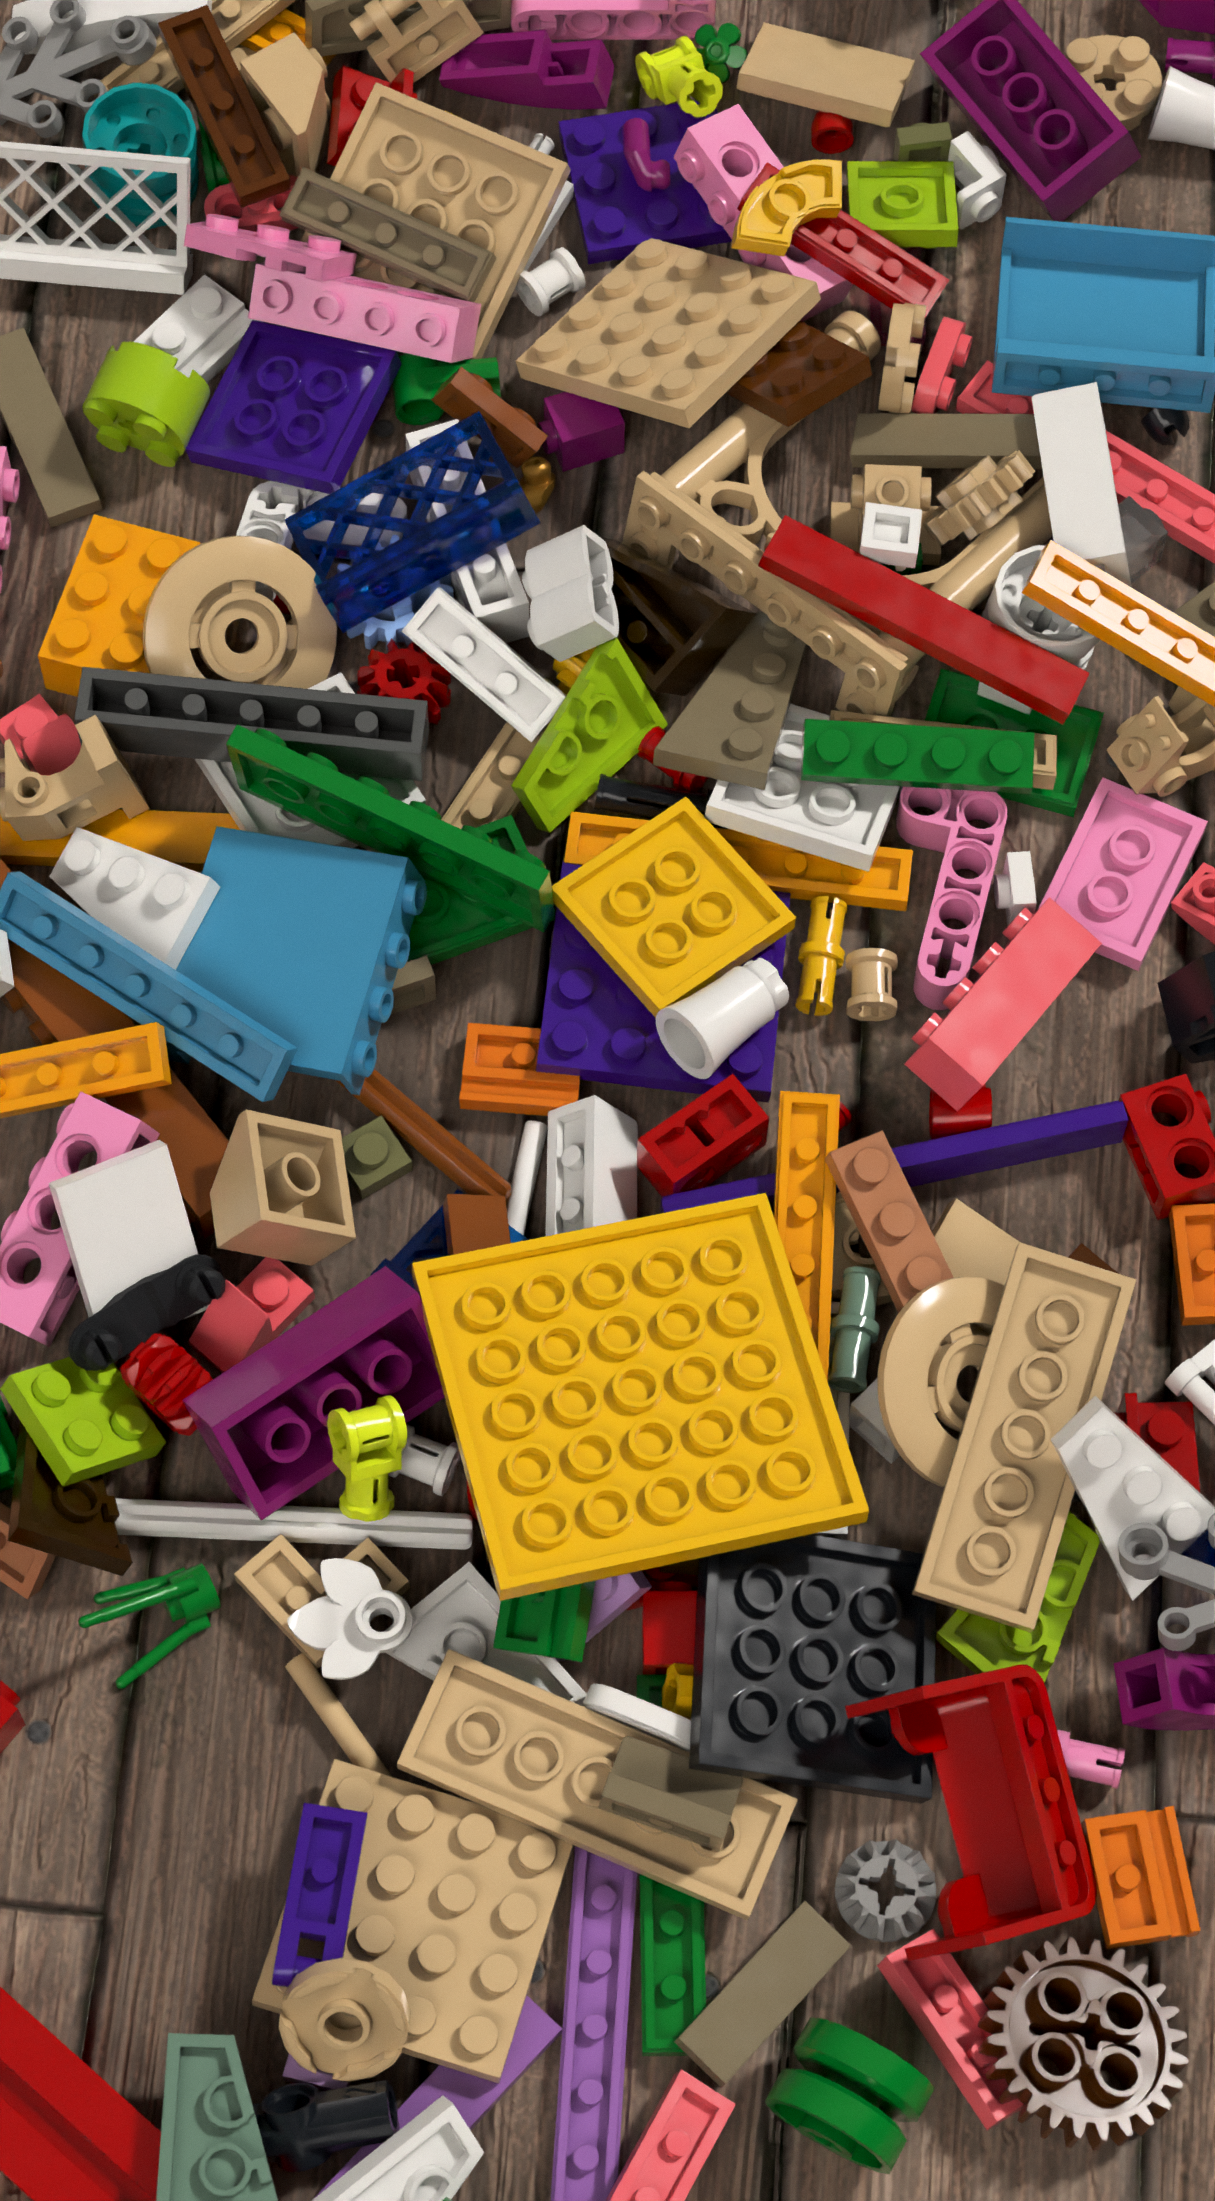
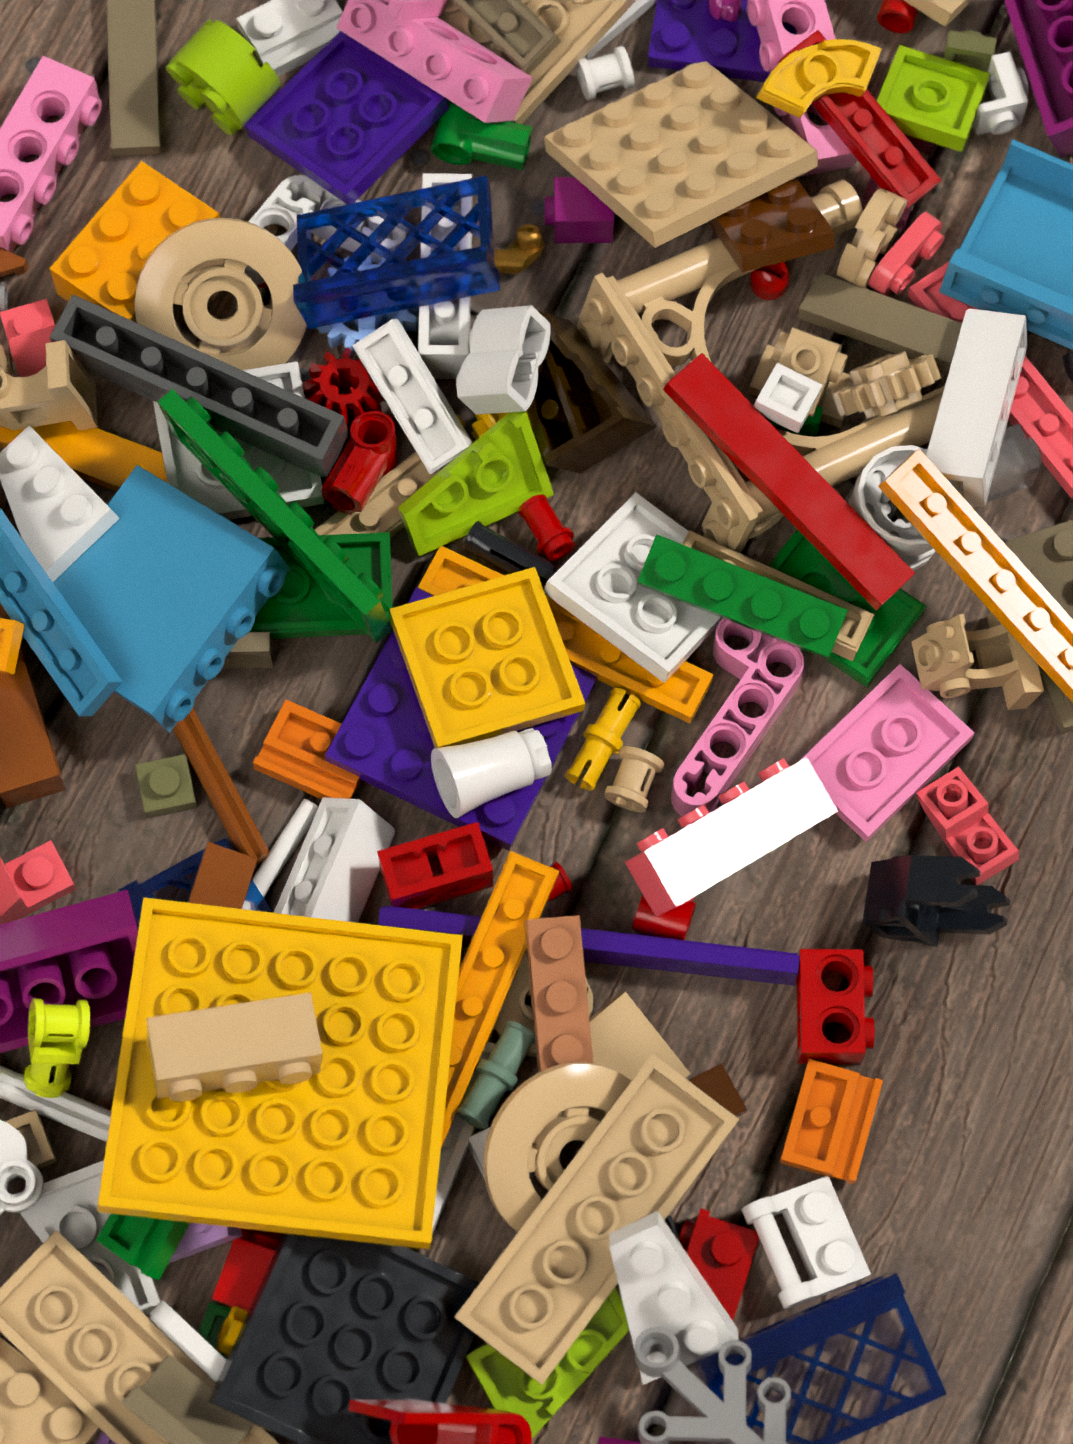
camera: 20 degrees right, 5 degrees up
(282, 1190) = (73, 793): tan slope -> none
(429, 1461) = (102, 1056): white bush -> none
(454, 752) = (363, 462): none -> red piece
(511, 427) = (515, 193): dark orange plate -> none
(579, 1377) = (234, 1047): none -> tan brick
(739, 710) = (609, 507): dark tan wing -> none
(806, 439) = (767, 285): none -> red hinge
(1016, 885) = (787, 735): white plate -> none

